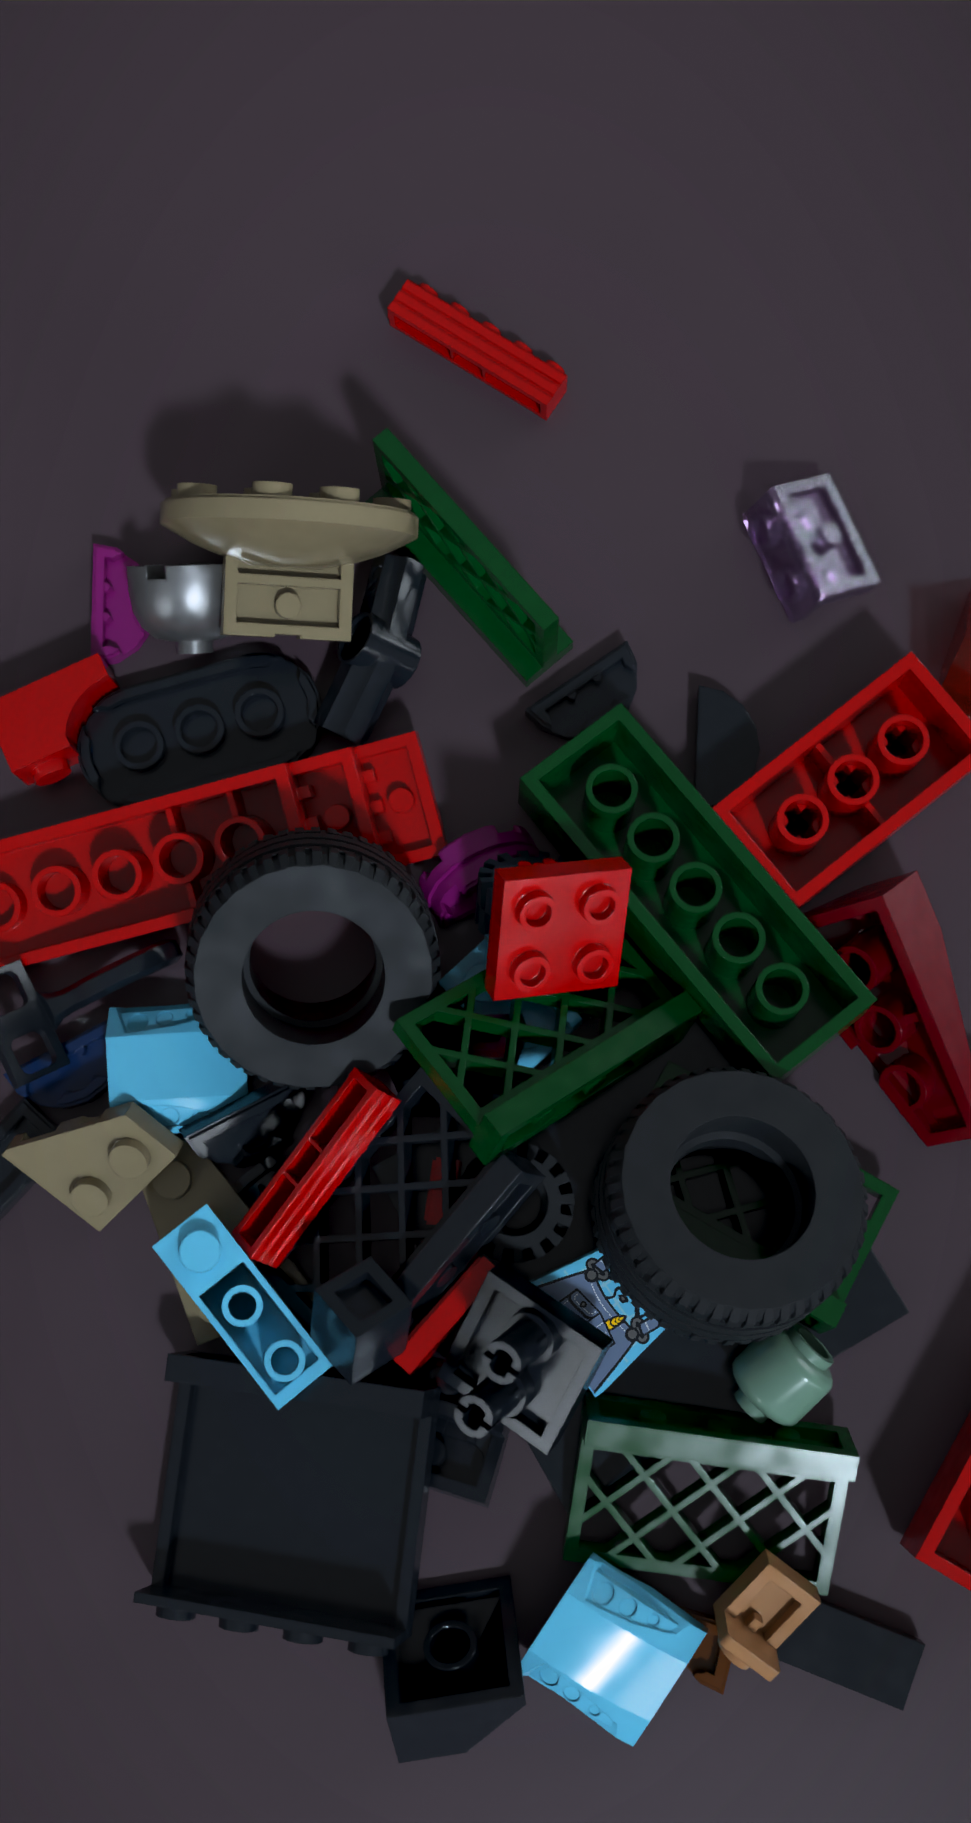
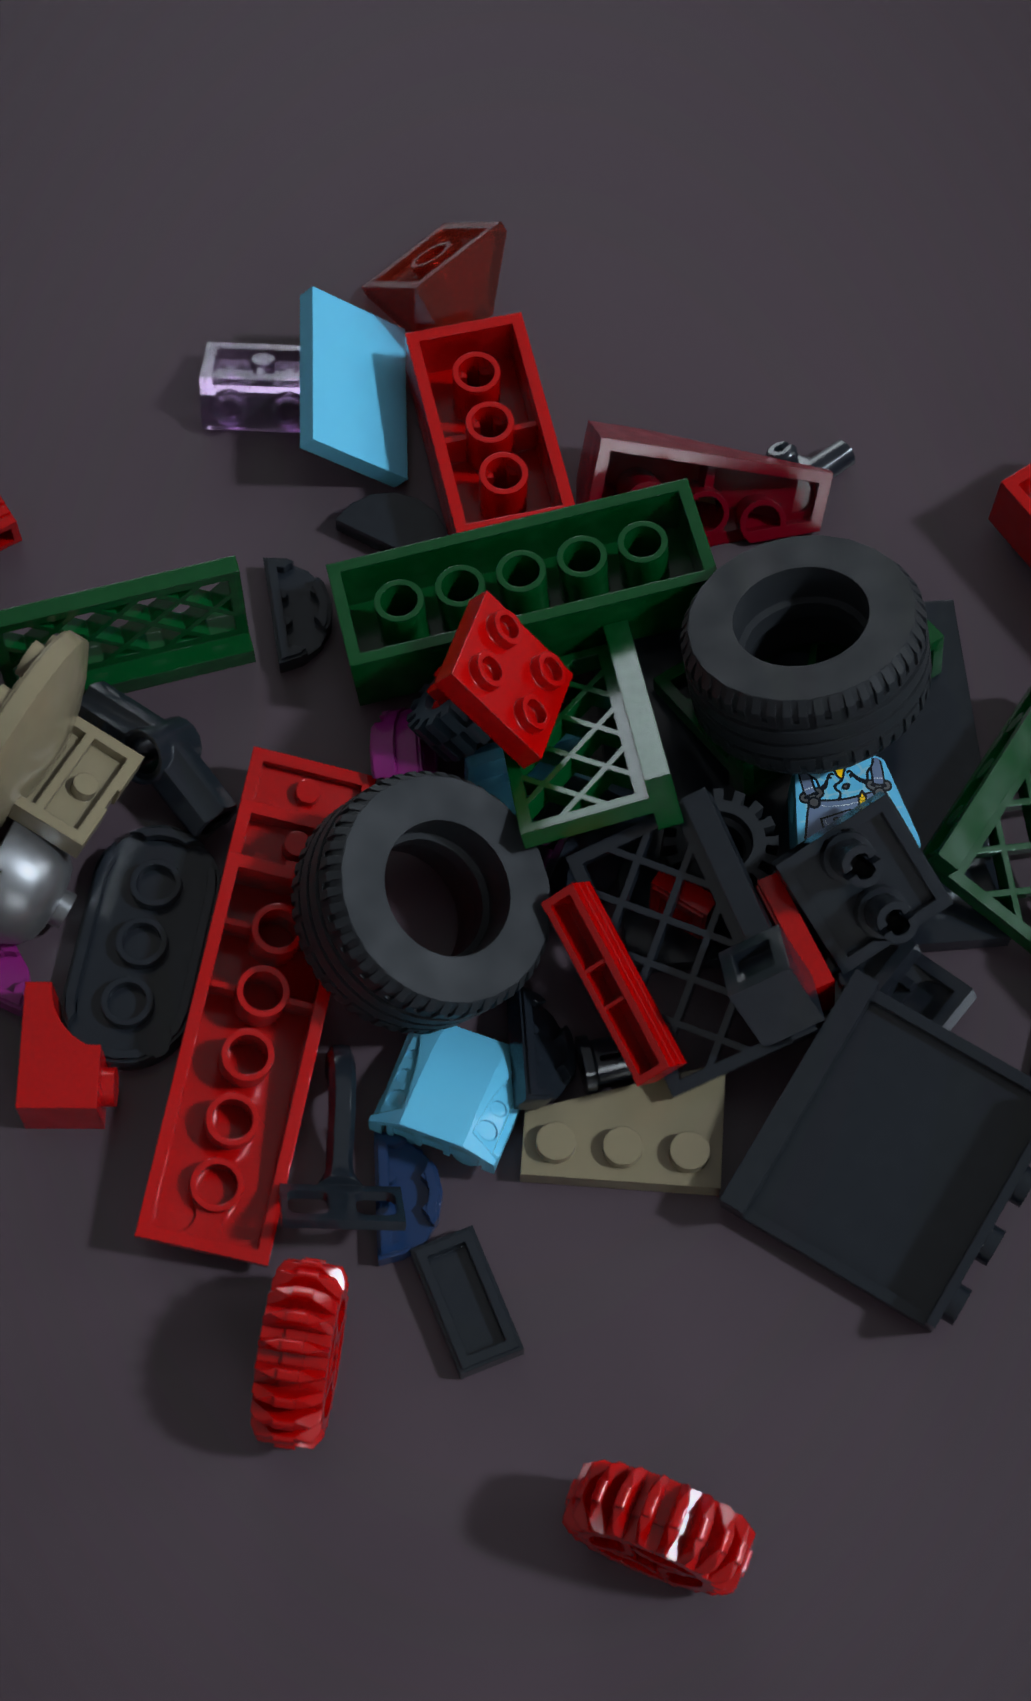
camera: 75 degrees left, 15 degrees down
(97, 1160) = (509, 1191): dark tan wing -> none
(242, 1306) = (701, 1106): medium azure slope -> none
(783, 1376) = (965, 704): sand green head -> none
(840, 630) = (352, 388): none -> medium azure tile

